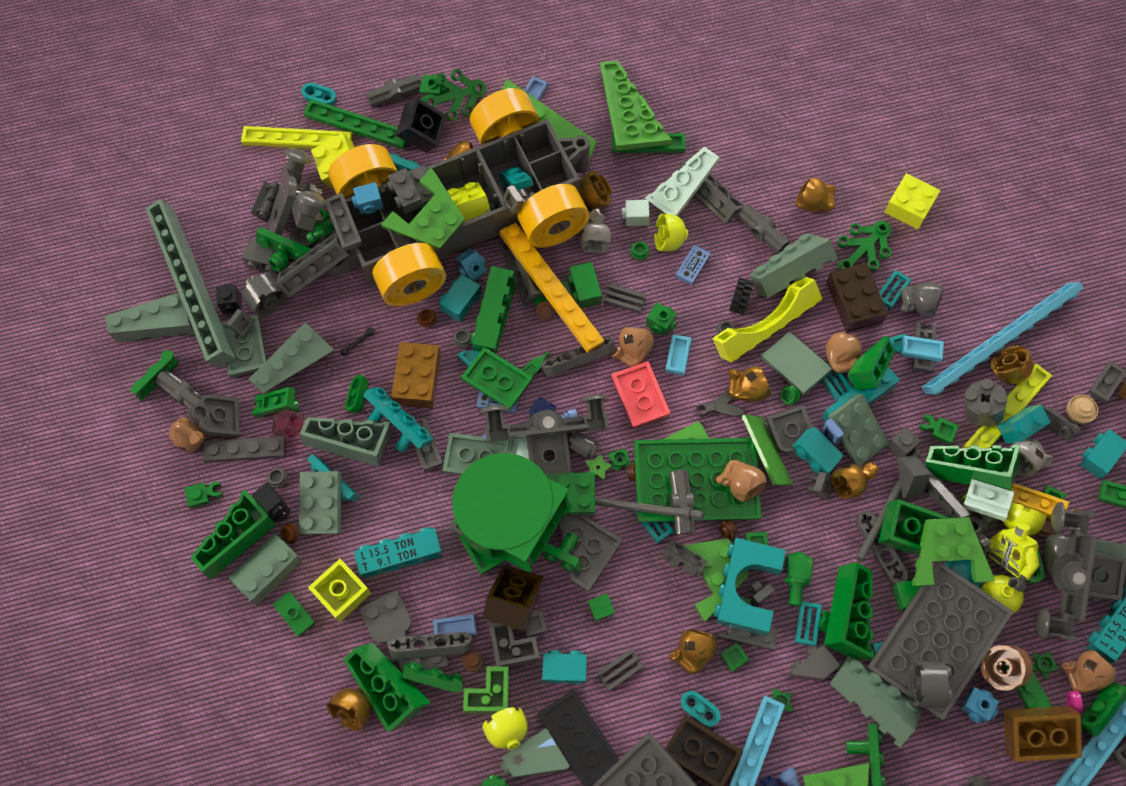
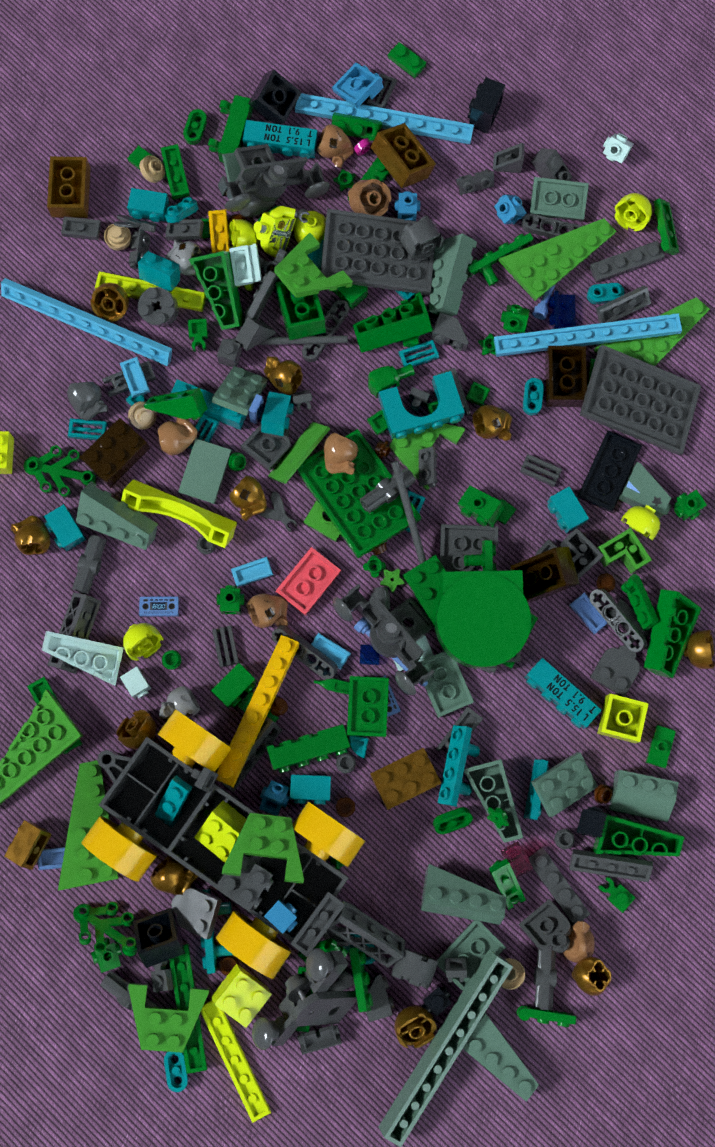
camera: 125 degrees left, 10 degrees up
(153, 423) = (591, 976): none -> pearl gold piece
(203, 369) = (515, 977): none -> tan plate
(206, 523) = (611, 865): none -> dark grey plate
(223, 269) = (414, 1026): none -> pearl gold cylinder
(278, 261) = (377, 973): green plate -> none
(330, 422) = (498, 816): none -> green plate
(354, 96) = (165, 1027): none -> bright green wing
(369, 332) = (419, 860): black hinge -> none
(389, 116) = (161, 978): none -> dark grey plate
(419, 156) = (196, 911): none -> plate
(555, 75) = (28, 845): none -> pearl gold brick
(566, 380) = (331, 650): none -> medium azure tile
(616, 584) = (480, 506): none -> green brick
(741, 296) = (170, 545): black tyre -> none
(793, 741) = (515, 318): none -> green brick
(804, 222) = (64, 527): none -> teal brick
(878, 331) = (141, 417): none -> tan plate
(1059, 472) = (185, 230): none -> dark grey plate
(1083, 480) = (181, 210): none -> teal plate
(1089, 431) = (129, 222): none -> dark grey piece

